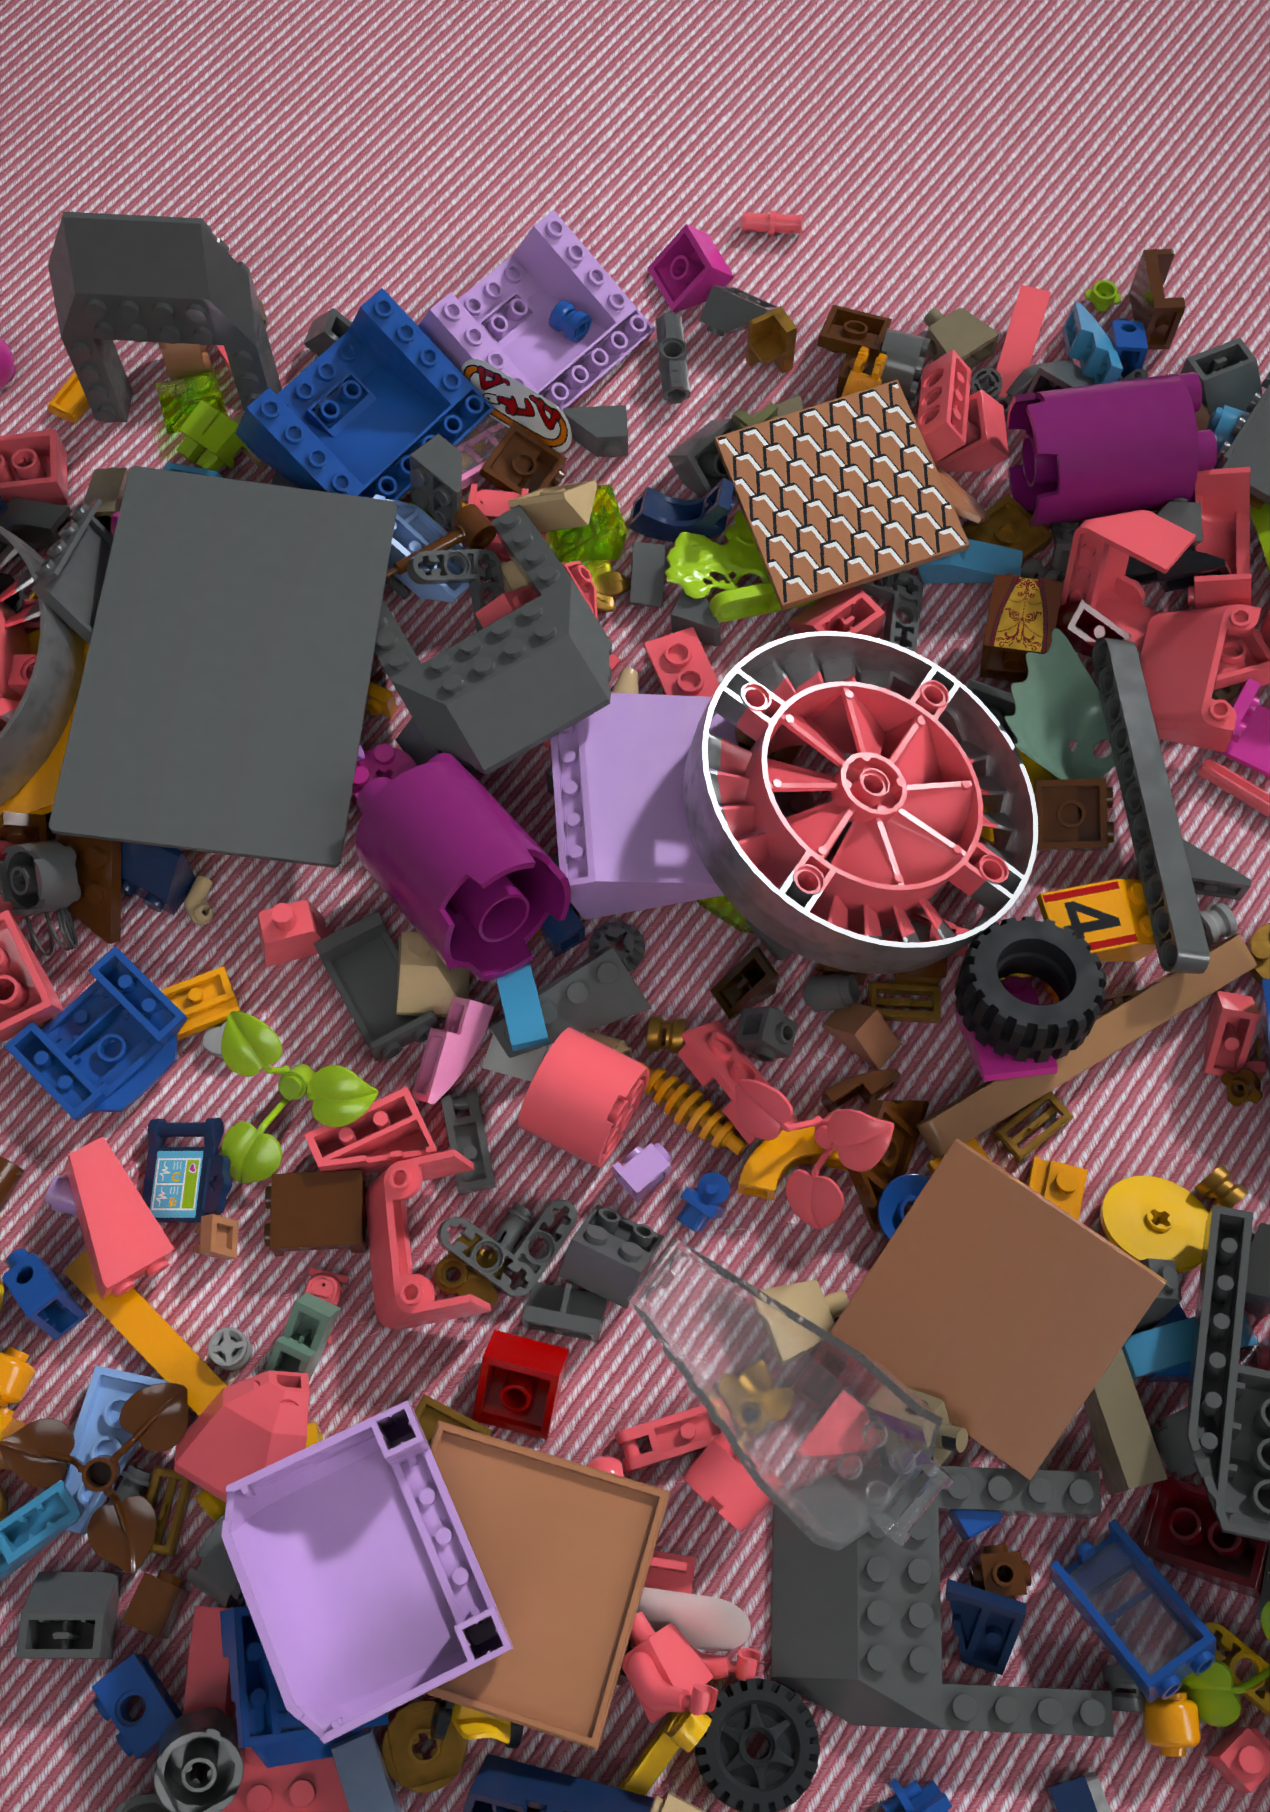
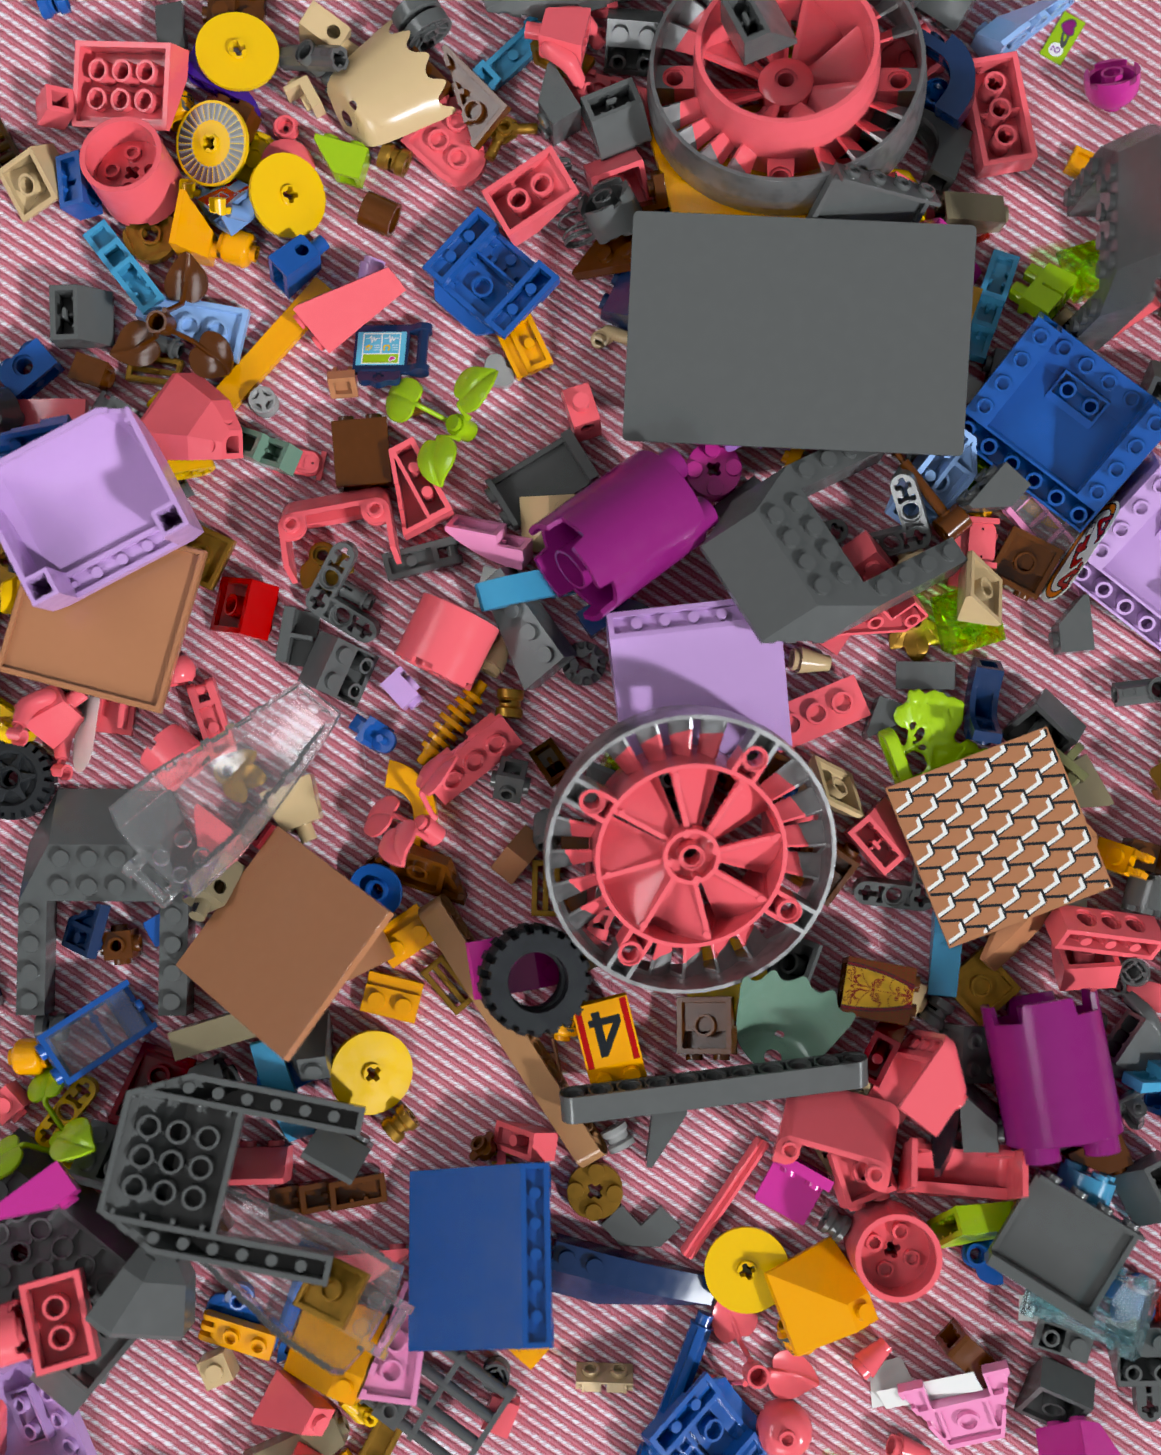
camera: 85 degrees right, 20 degrees up
(868, 1085) = (473, 860): reddish brown slope -> none

